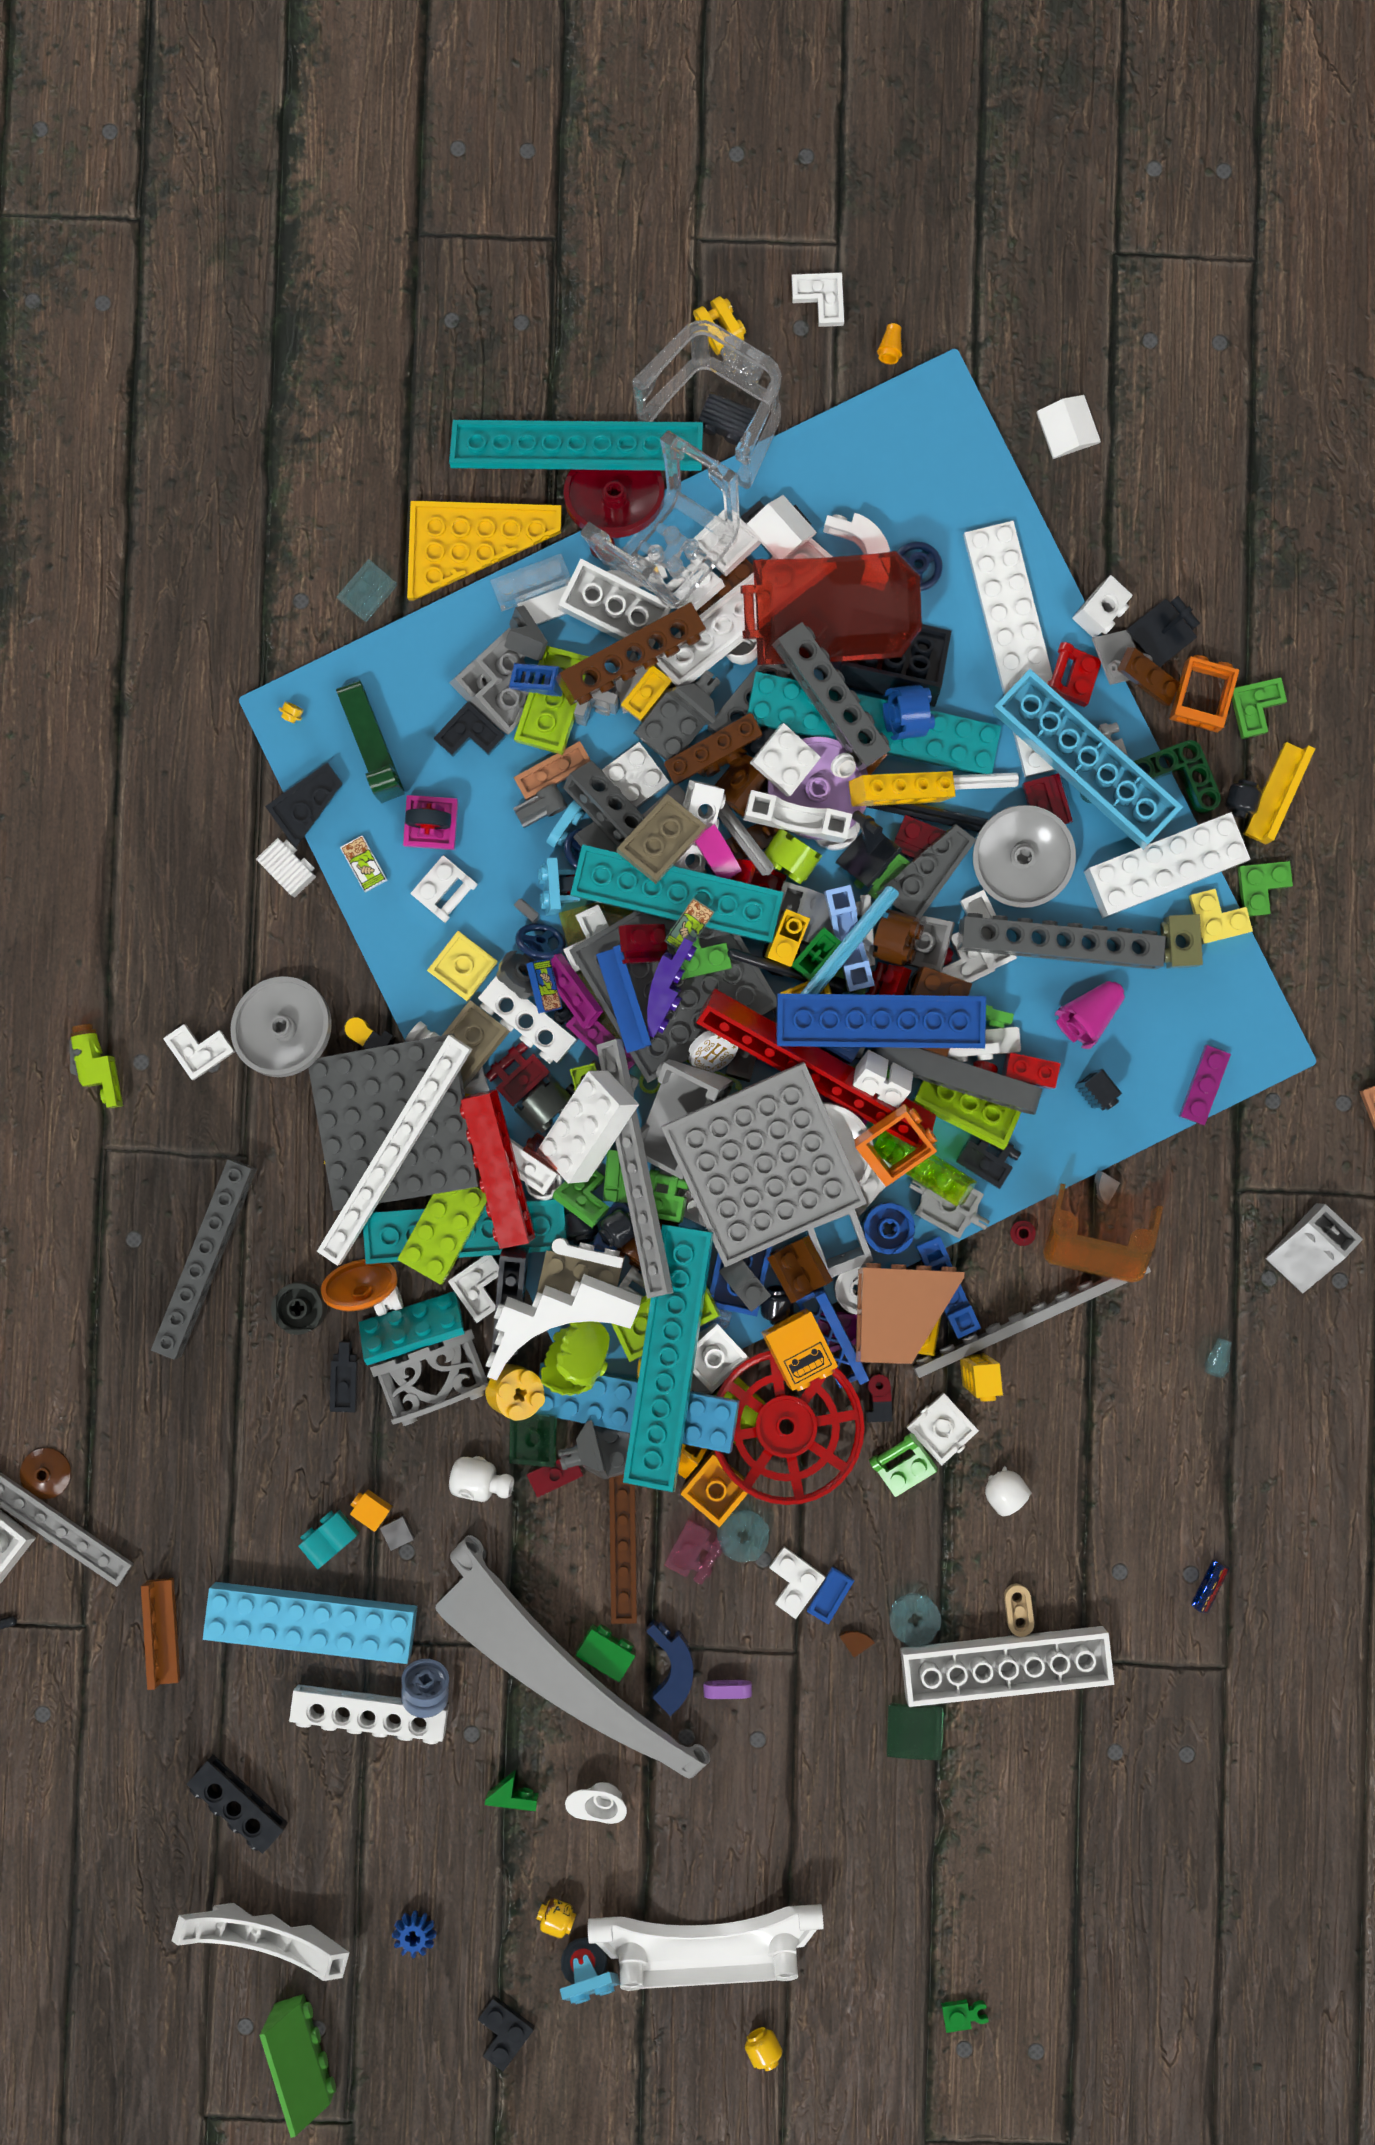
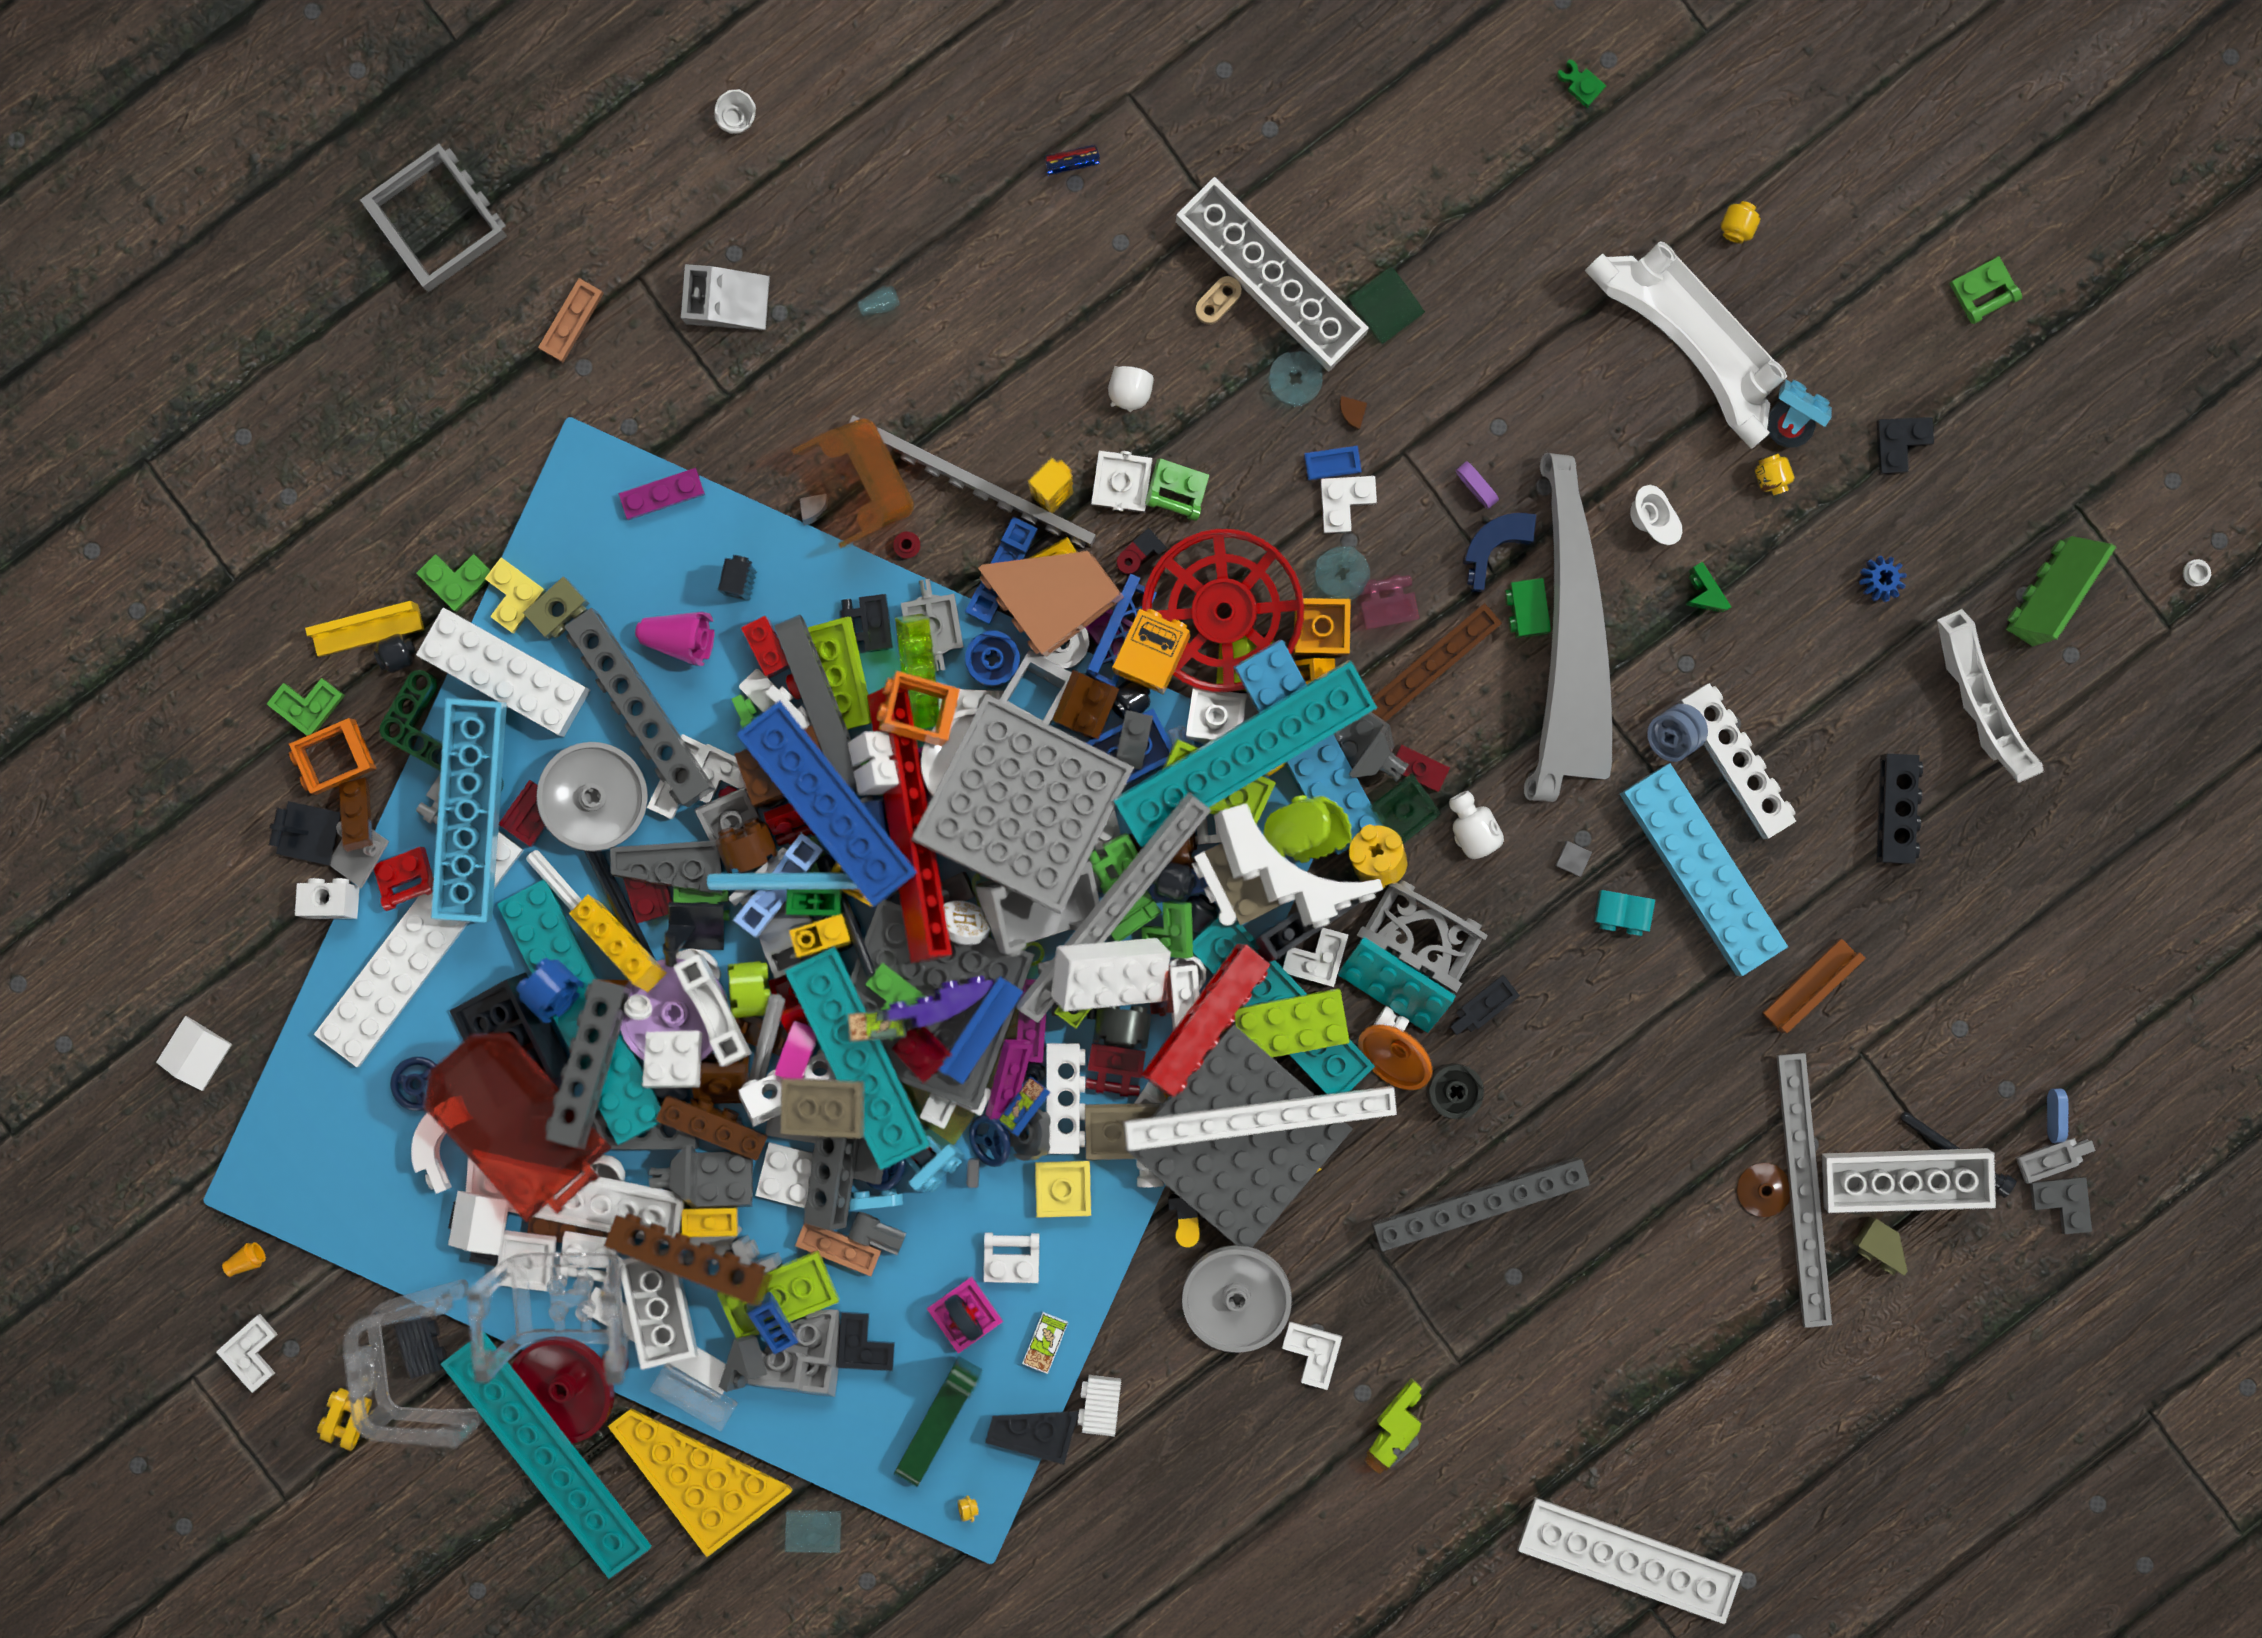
camera: 130 degrees left, 0 degrees up
(370, 1509) = (1572, 896): light orange brick -> none

